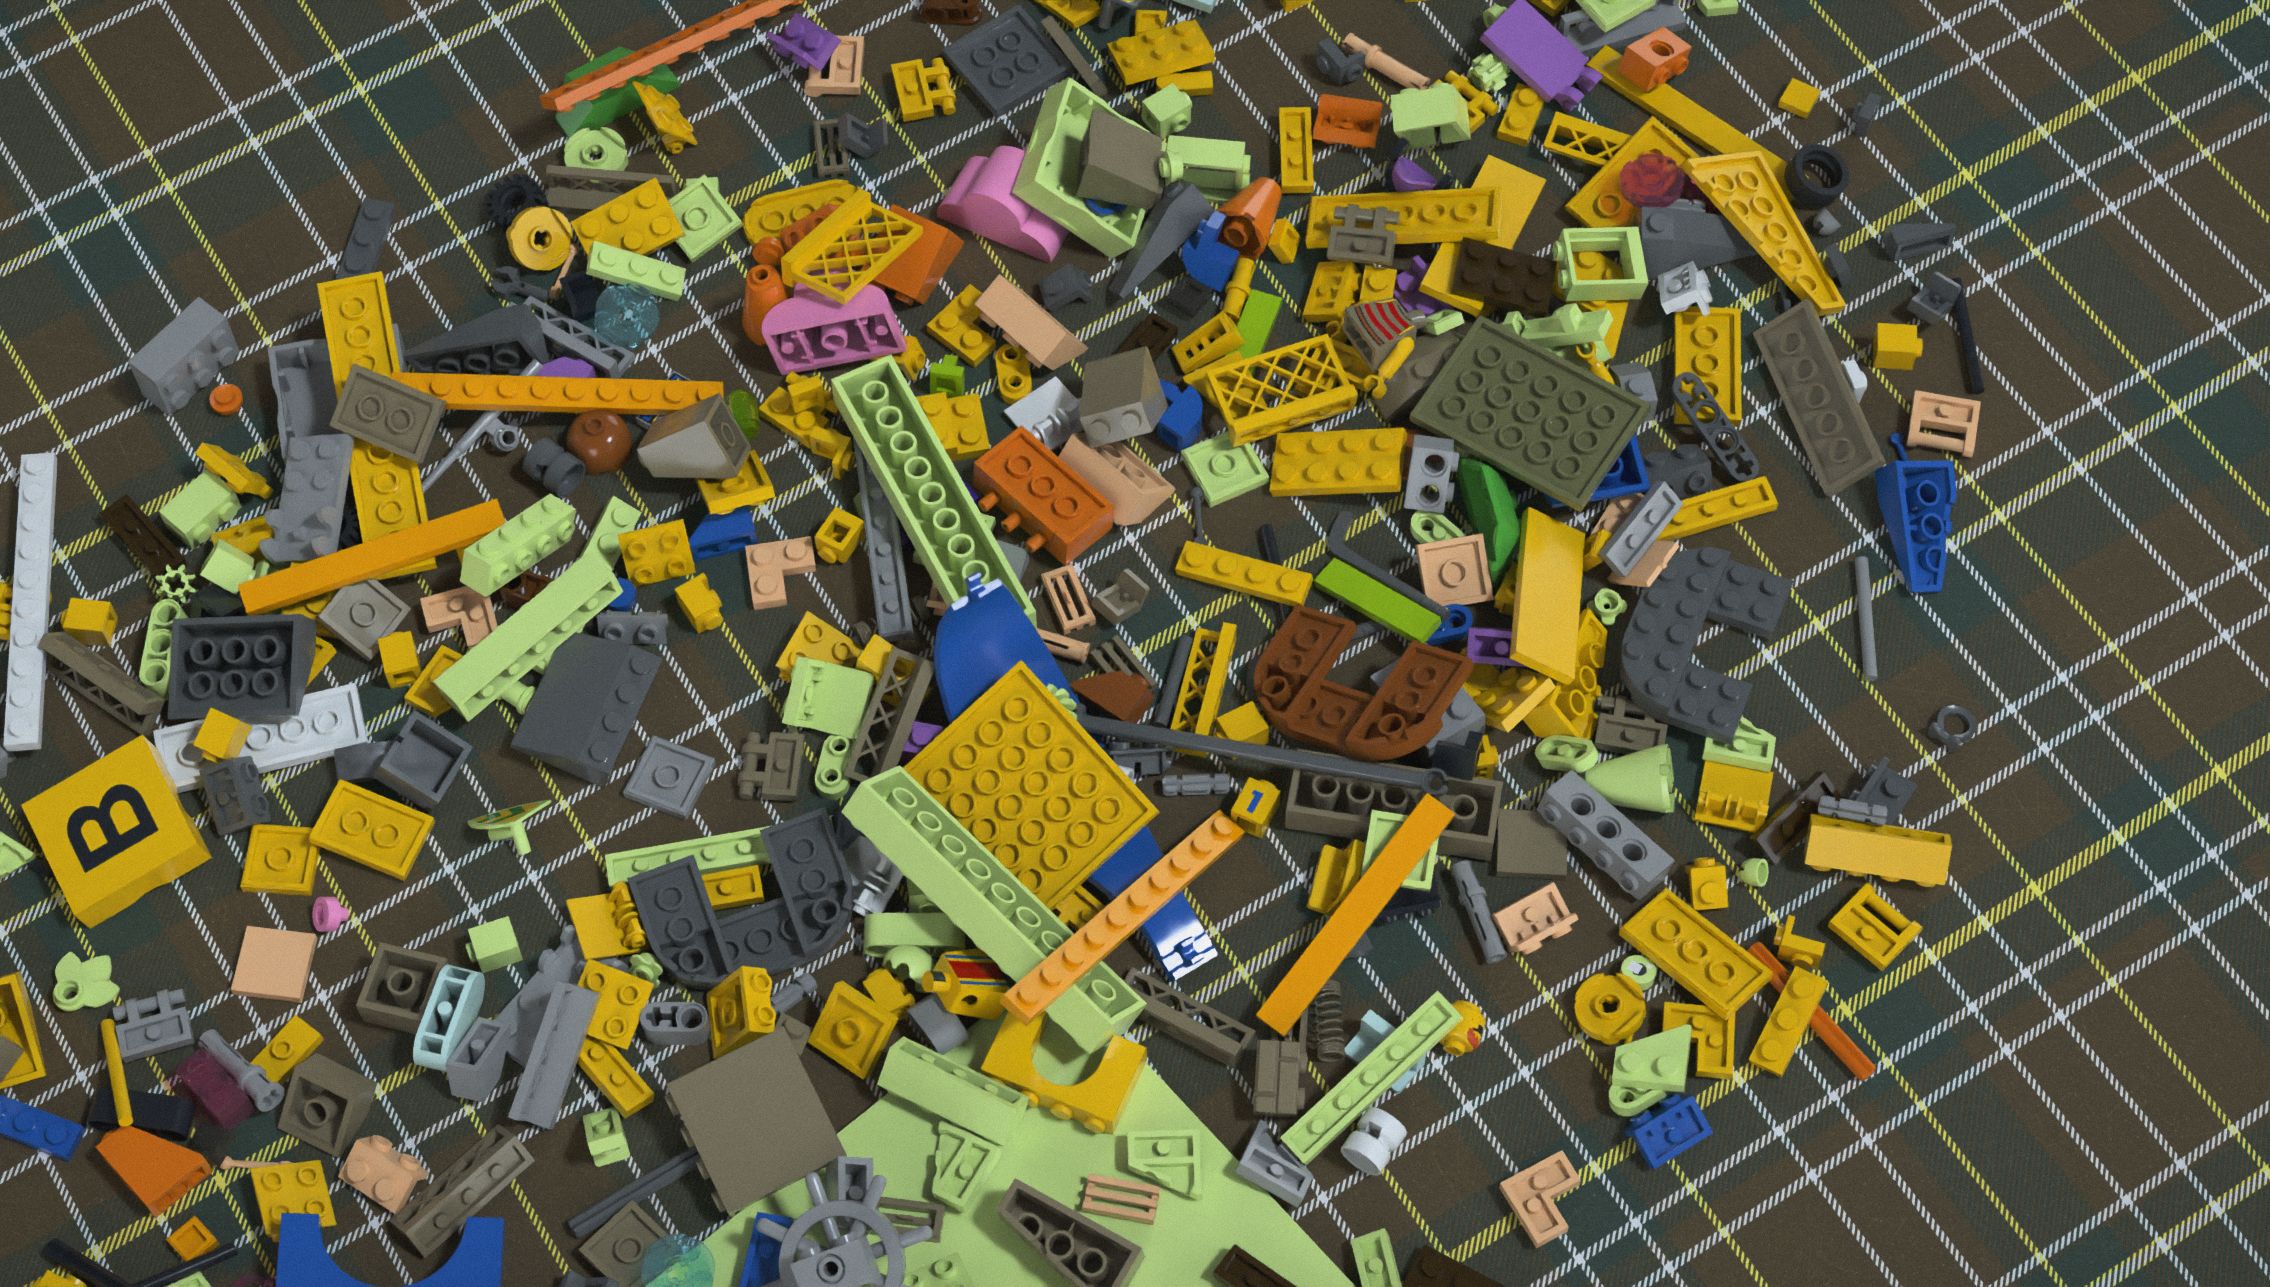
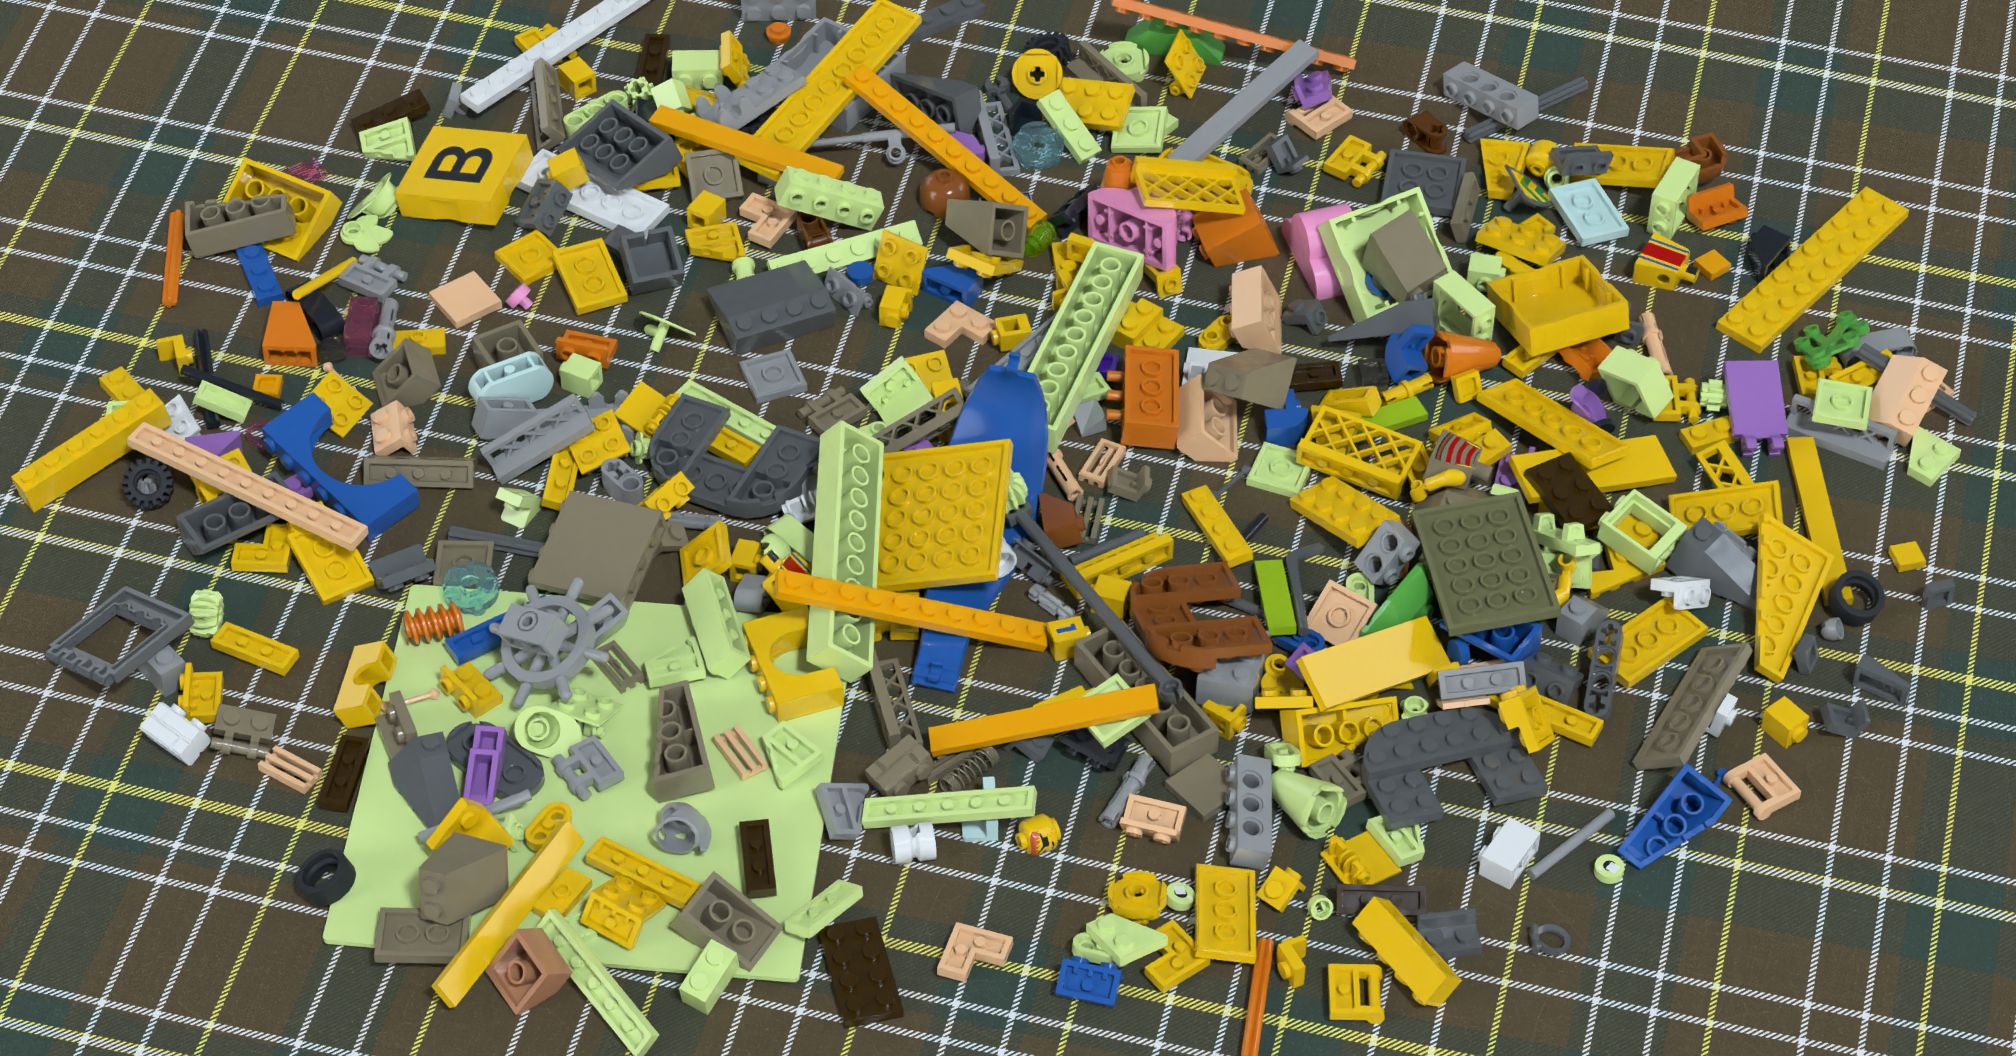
camera: 45 degrees right, 15 degrees down
(53, 936) = (379, 201): none -> yellowish green piece
(387, 413) = (834, 79): dark tan plate -> none
(462, 910) = (587, 345): none -> orange bracket
(528, 636) = (778, 243): yellowish green brick -> none
(553, 467) = (902, 185): dark grey wheel -> none
(744, 355) = (1071, 213): none -> black bracket
(772, 116) = (1246, 103): none -> light grey tile
(947, 377) = (1176, 305): lime tile -> none
(958, 328) = (1215, 294): yellow plate -> none
(1171, 166) = (1430, 282): yellowish green plate -> none
(1279, 93) = (1558, 305): none -> yellow tile
(1363, 244) = (1503, 413): dark tan plate -> none
(1459, 759) = (1206, 695): black panel -> none
(1582, 521) = (1458, 651): none -> blue tile
(1651, 181) = (1731, 512): clear pink tile -> none
(1654, 59) = (1830, 461): orange brick -> none
(1718, 533) = (1524, 709): none -> yellow plate
(1788, 1021) = (1233, 990): yellow plate -> none
(1837, 675) = (1508, 853): none -> white brick
(1852, 811) = (1414, 916): light grey axle -> none
(1920, 614) = (1609, 869): none -> yellowish green tile
(1968, 342) = (1831, 770): black bar -> none

